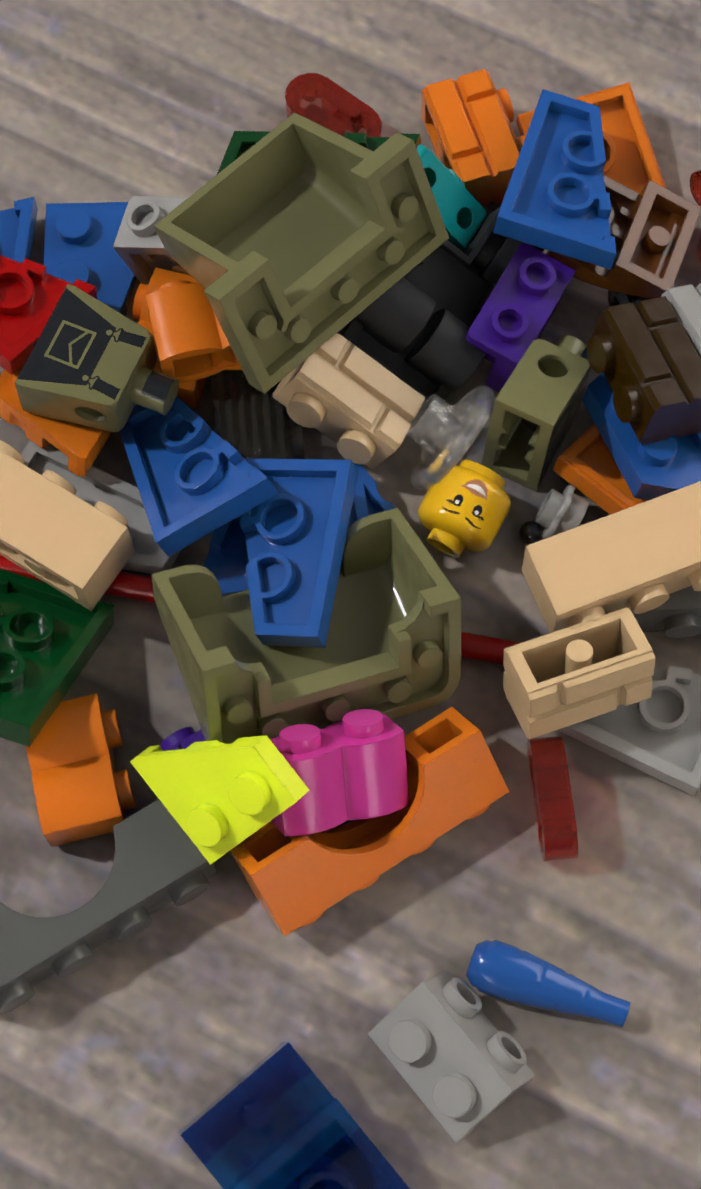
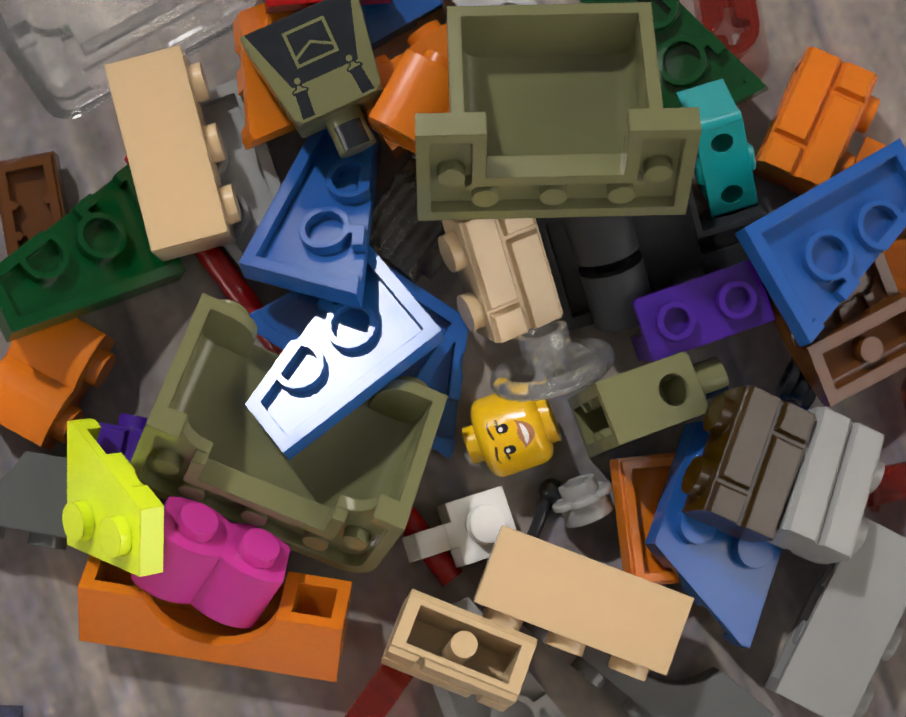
camera: 40 degrees right, 15 degrees up
(497, 604) = (466, 528): none -> white plate

